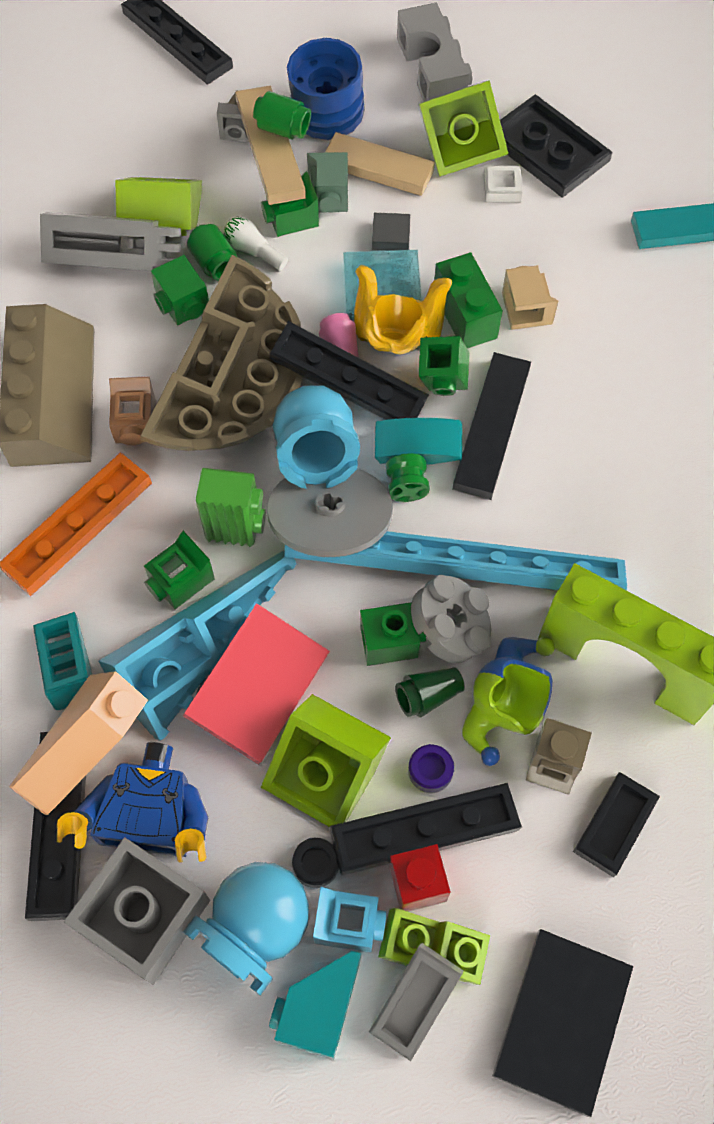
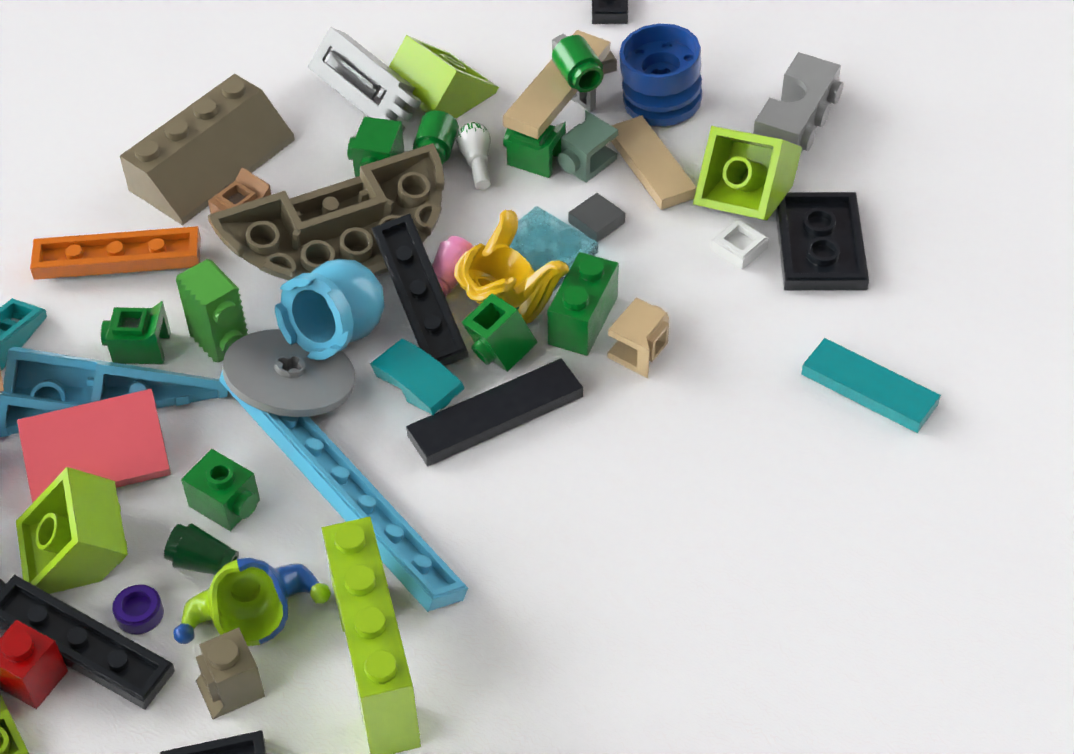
camera: 45 degrees right, 15 degrees down
(407, 477) = (374, 395): green wheel -> none
(467, 607) = (269, 538): light grey plate -> none

